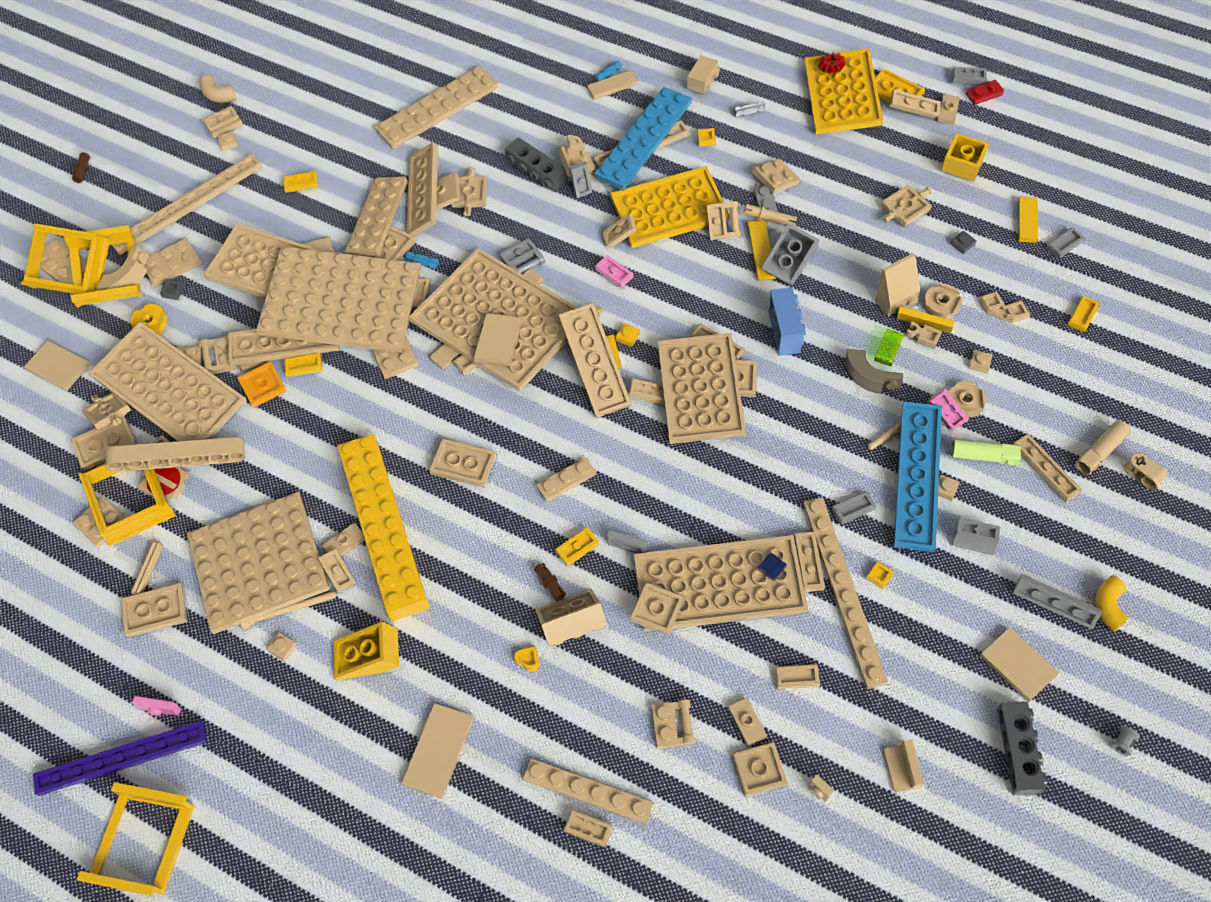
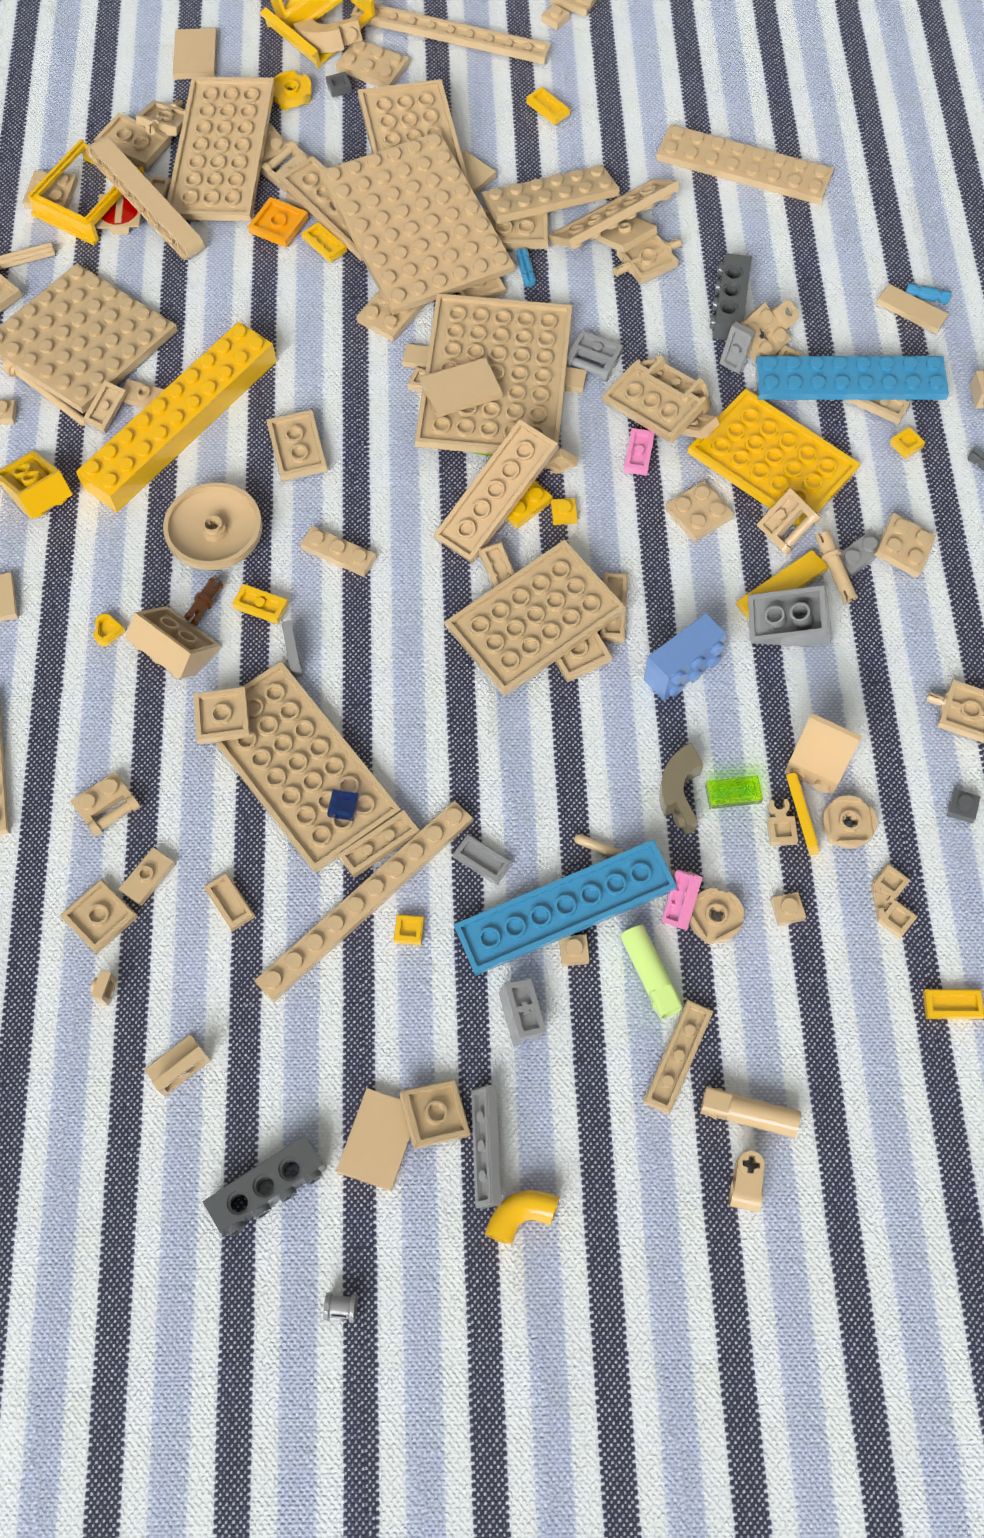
camera: 55 degrees right, 5 degrees up
(496, 545) = (212, 526): none -> tan dish
(585, 238) = (658, 397): none -> tan plate
(679, 264) = (699, 511): none -> tan plate
(1020, 621) = (434, 1114): none -> tan tile

